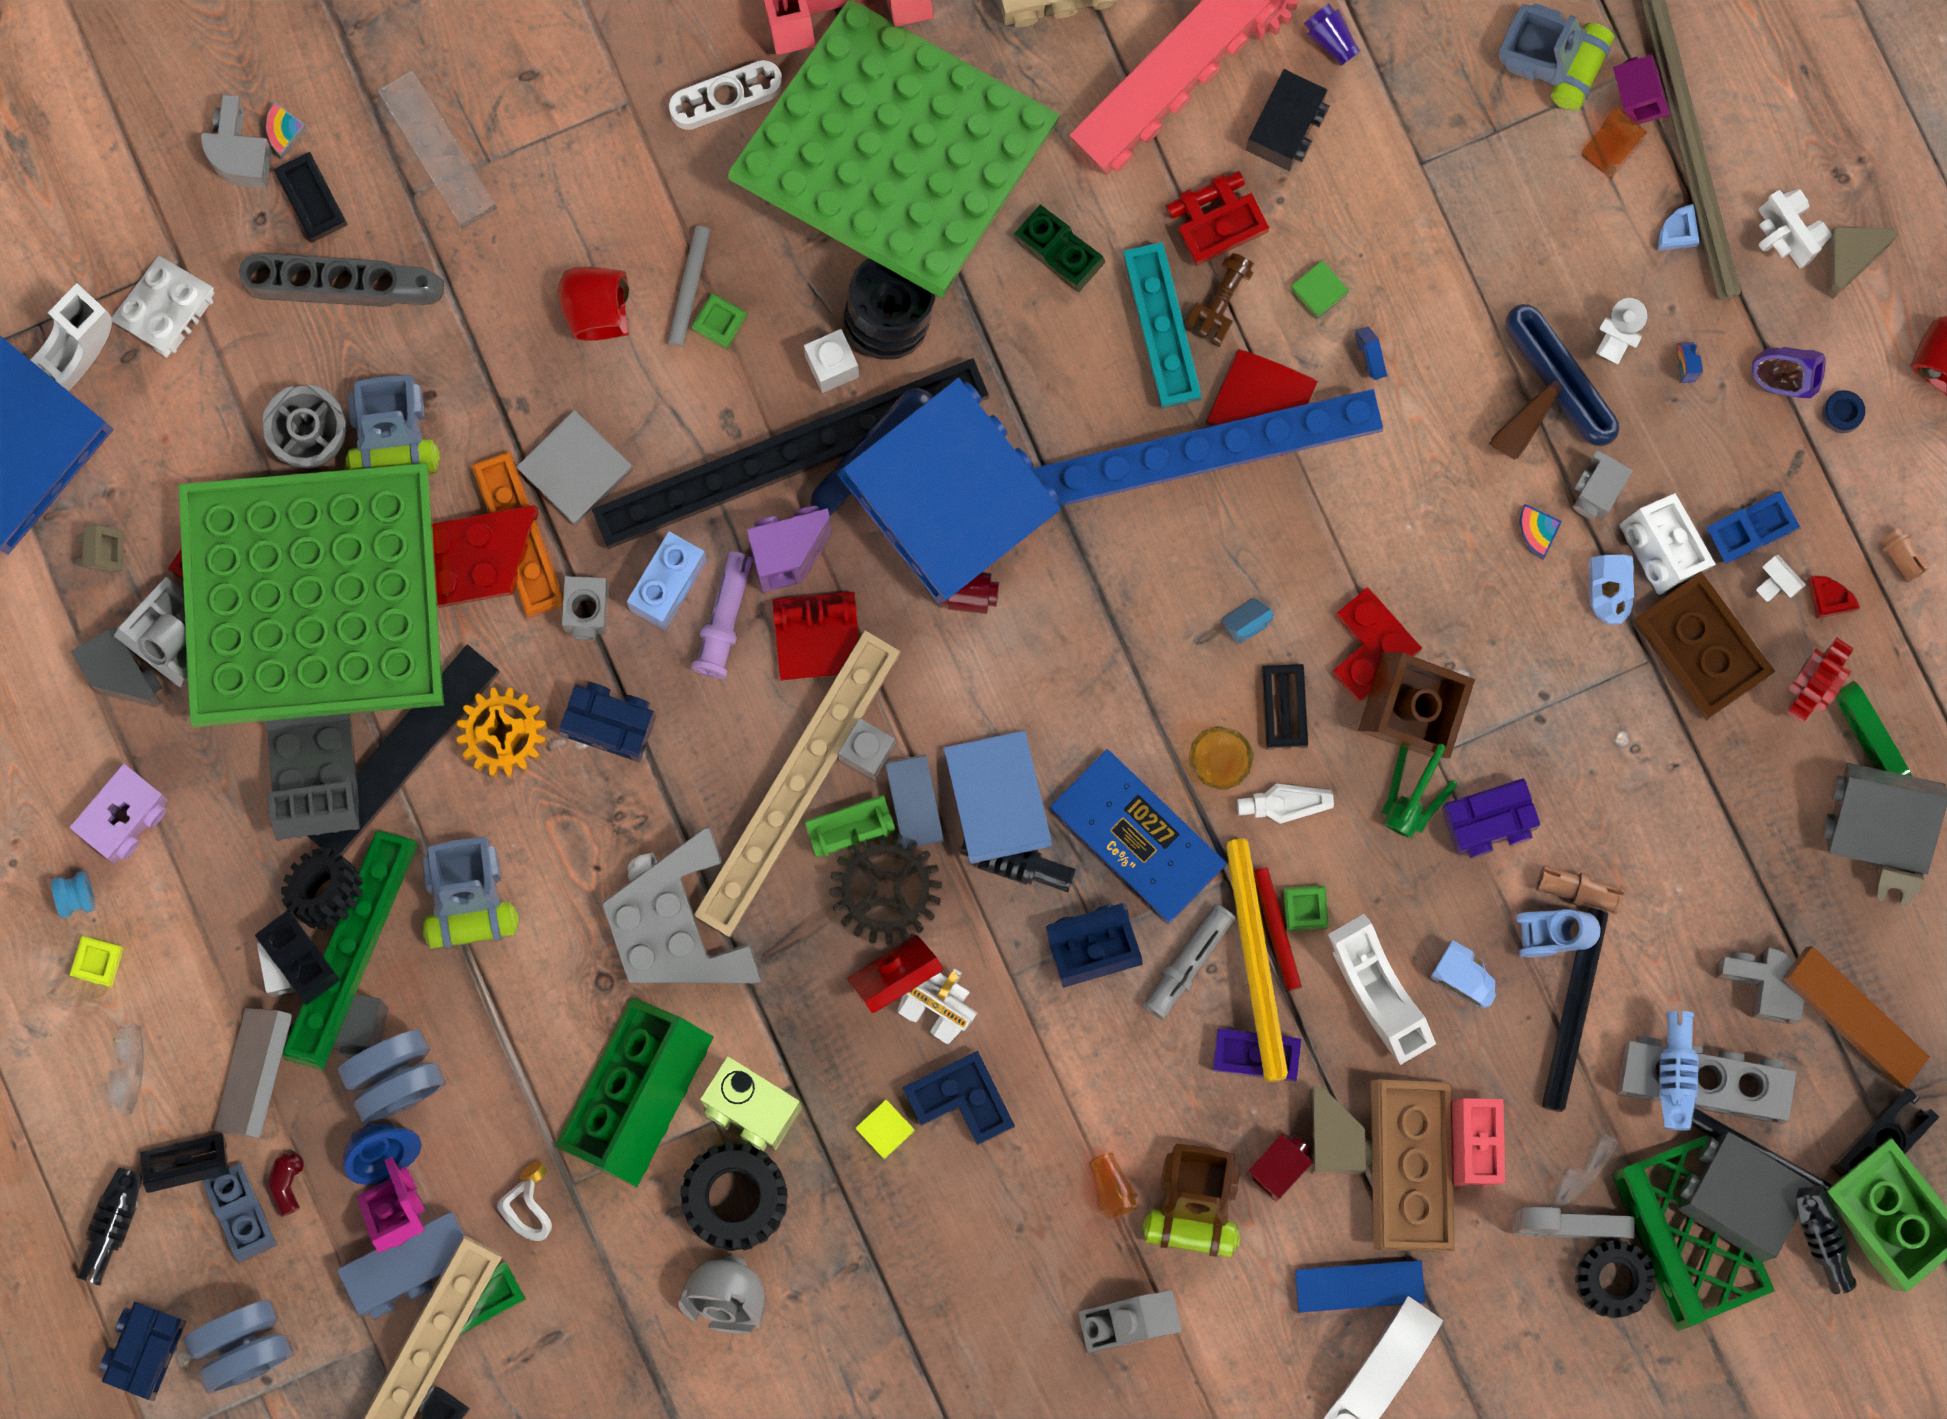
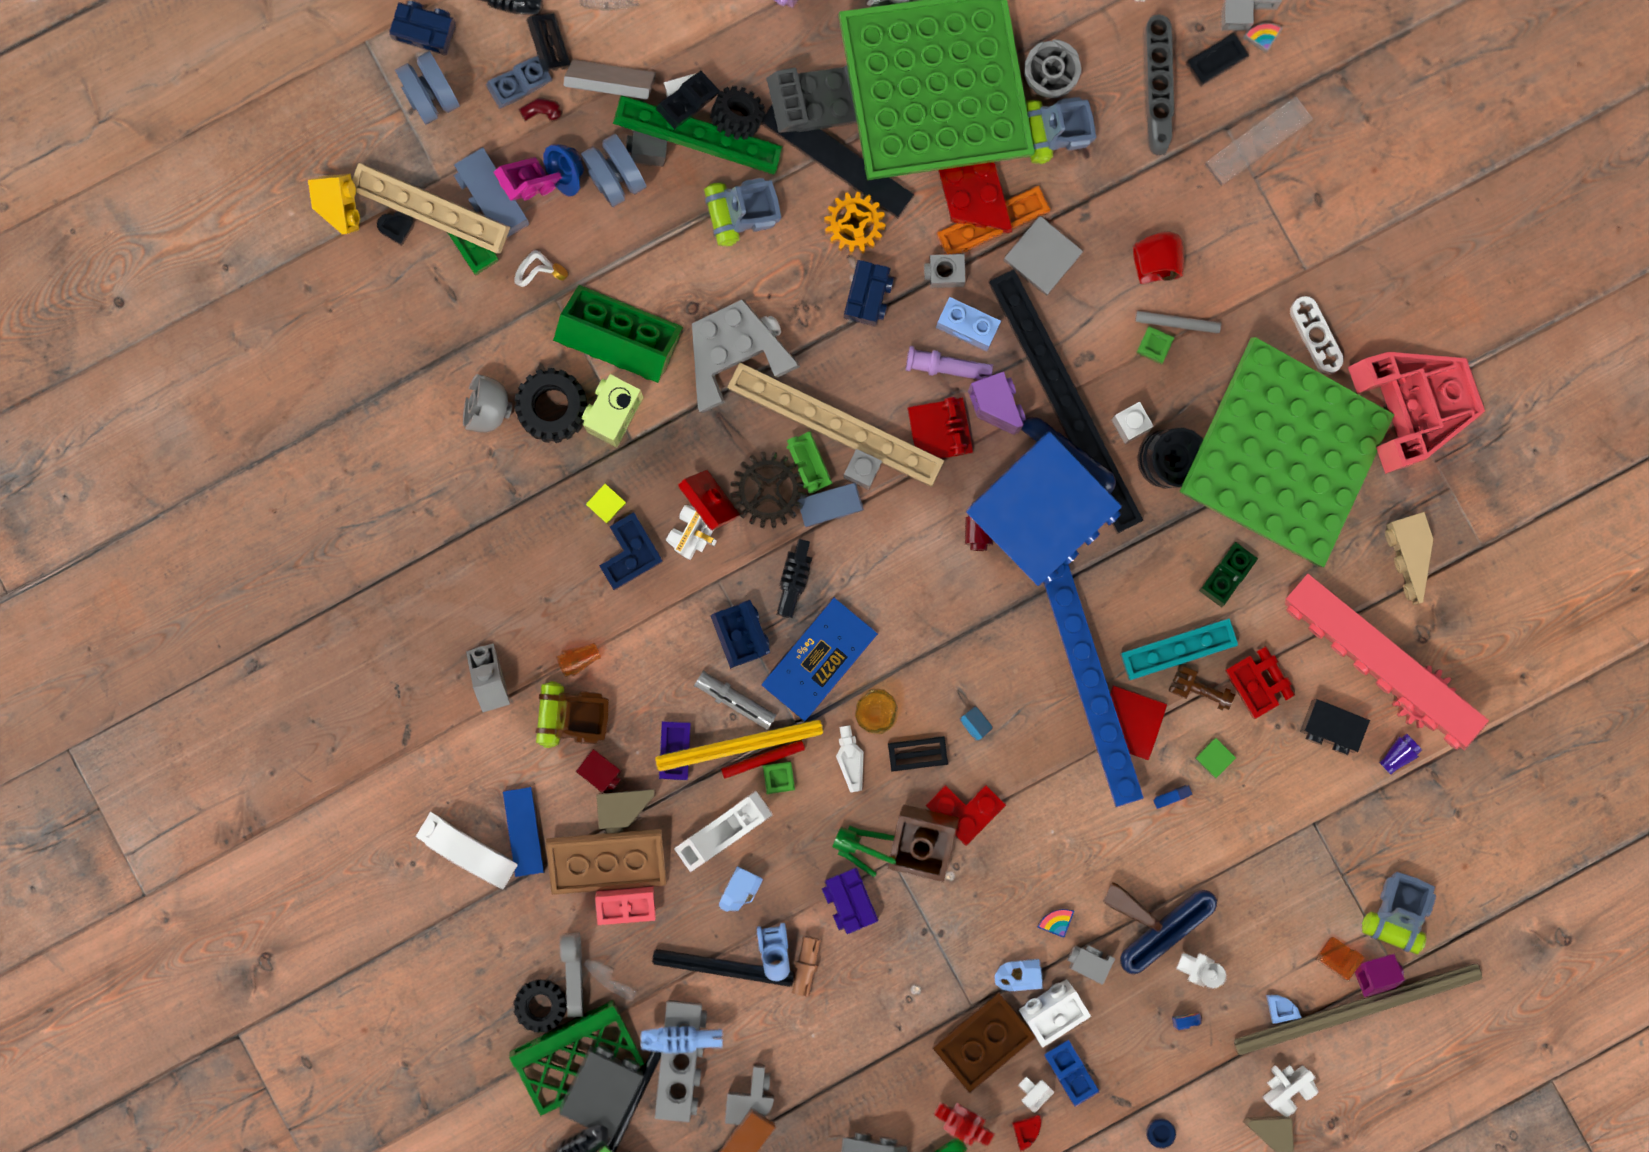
camera: 80 degrees right, 5 degrees up
(997, 797) = (837, 560): medium blue tile -> none
(1790, 371) = (1185, 1093): rock -> none

